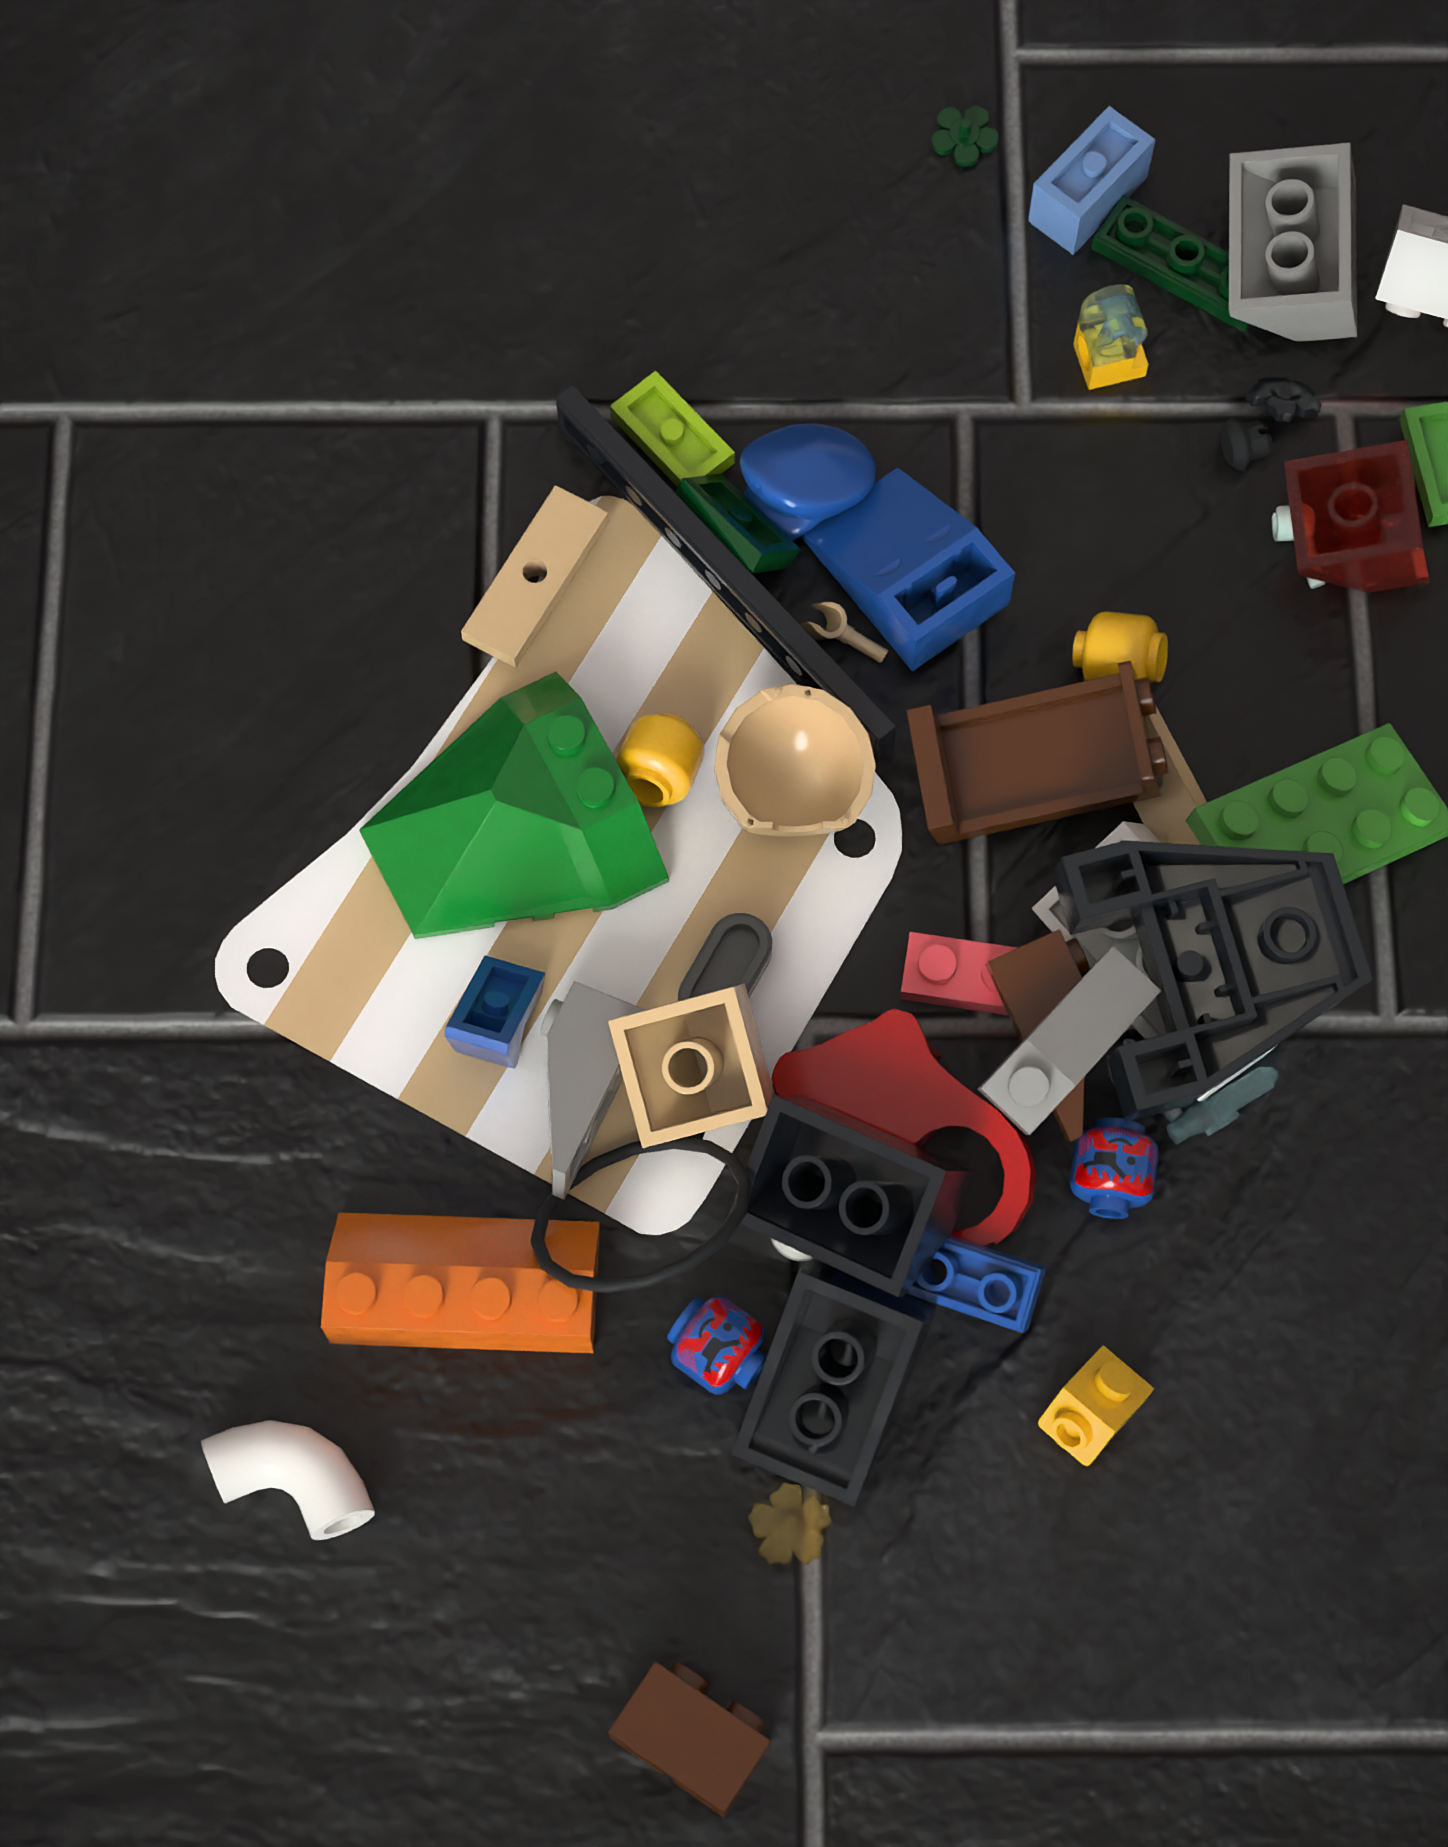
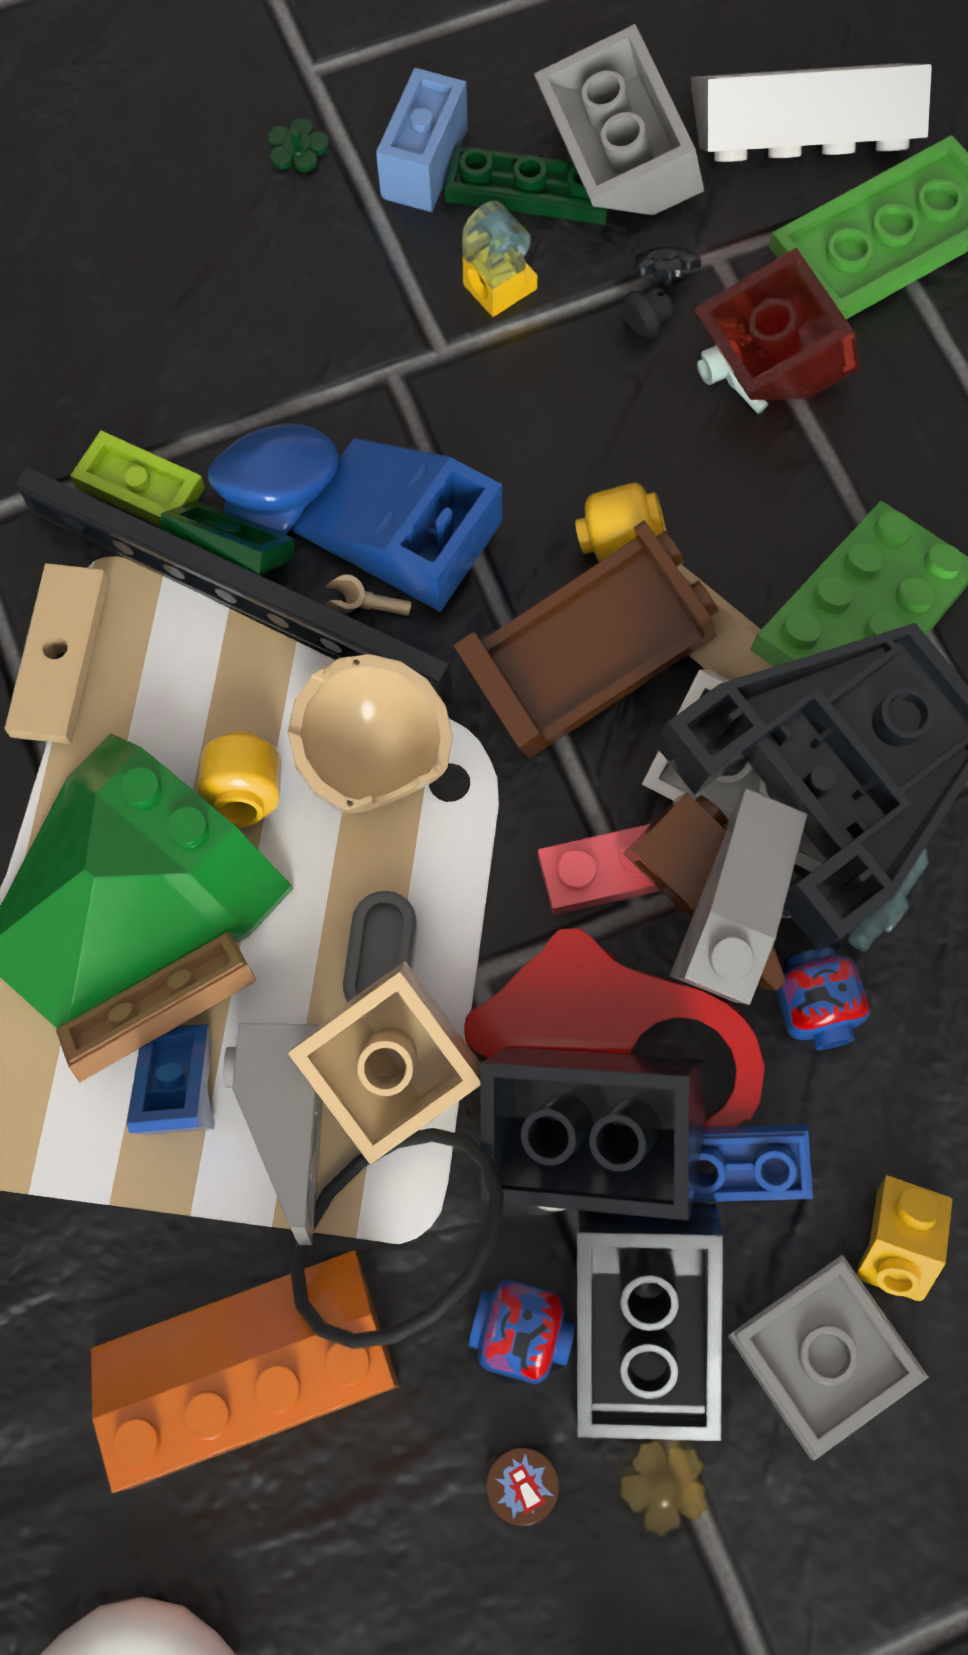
camera: 20 degrees left, 0 degrees up
(505, 938) = (154, 1006): none -> medium nougat tile
(666, 1474) = (522, 1486): none -> tile
(980, 1477) = (827, 1357): none -> light grey tile

